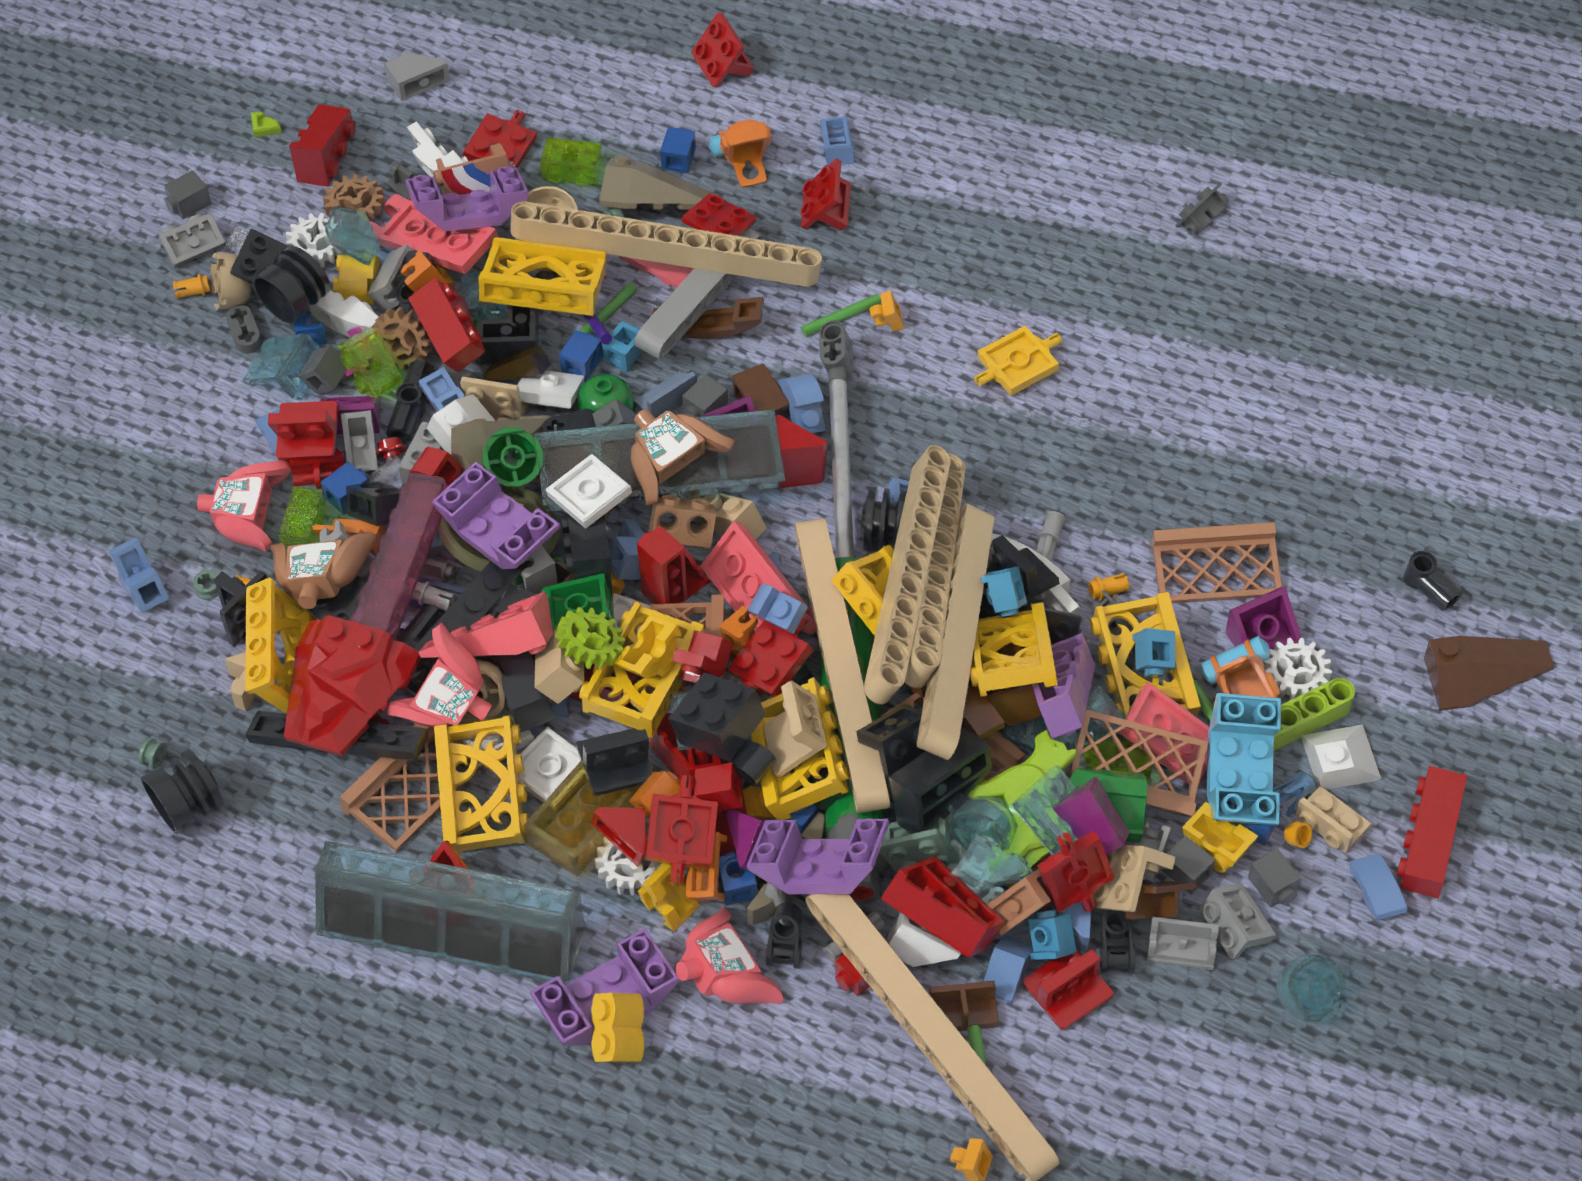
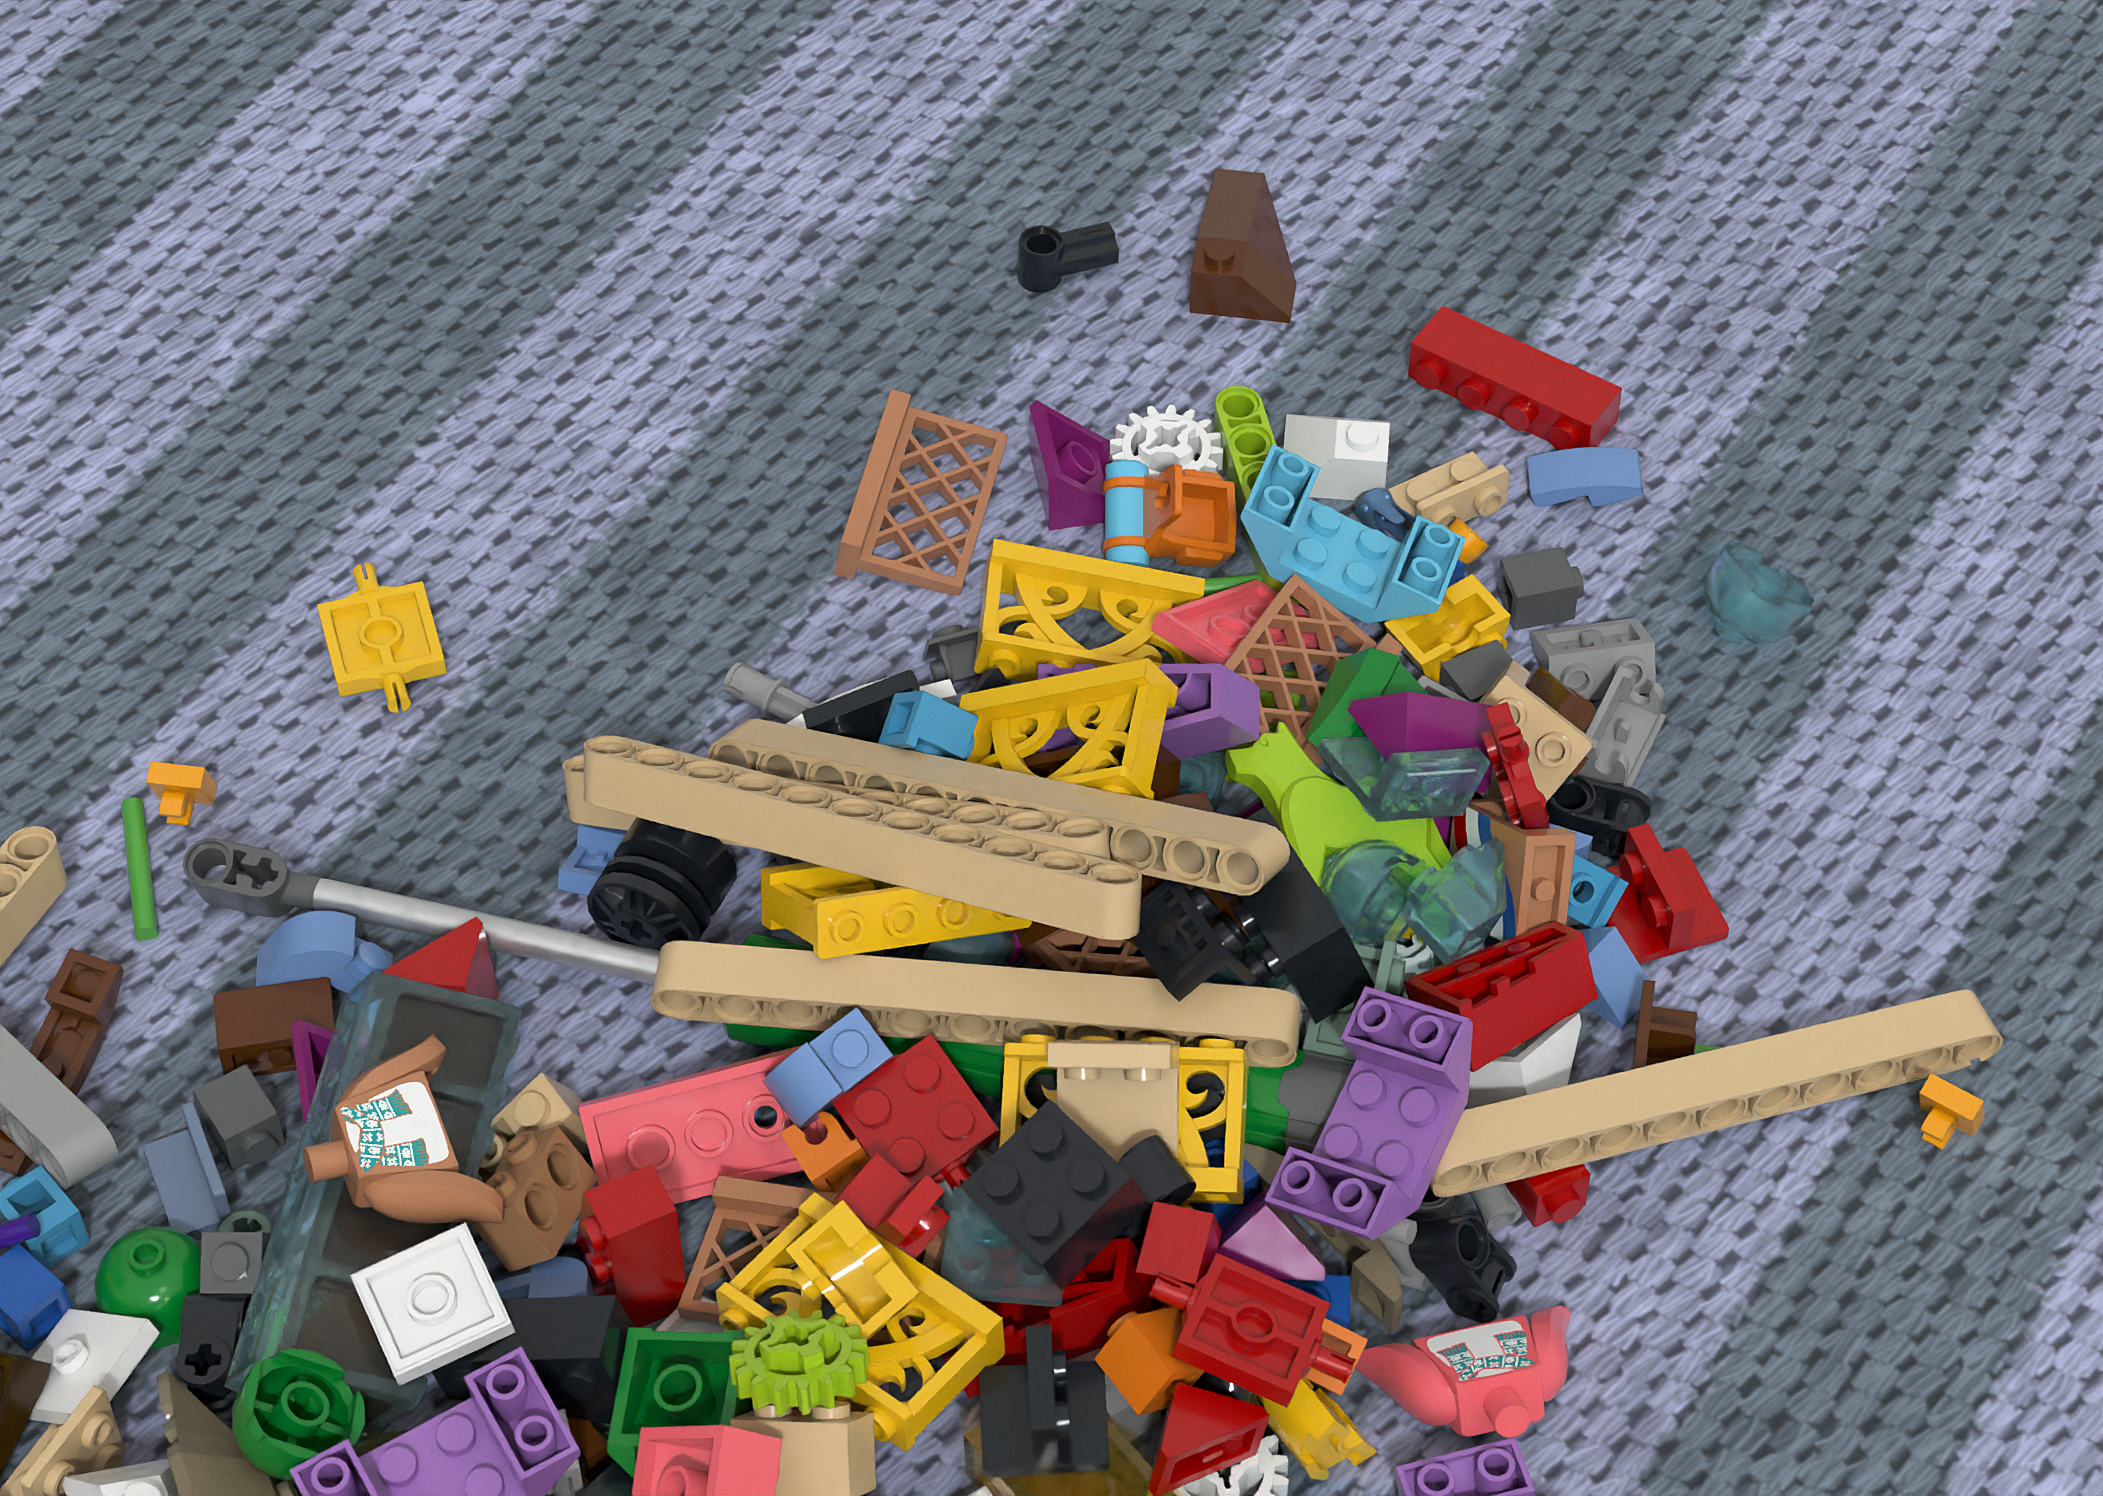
camera: 75 degrees left, 5 degrees down
(1111, 585) = (905, 644): light orange pin -> none
(1154, 651) = (1097, 592): dark azure brick -> none
(1210, 202) = (191, 314): dark grey hinge -> none

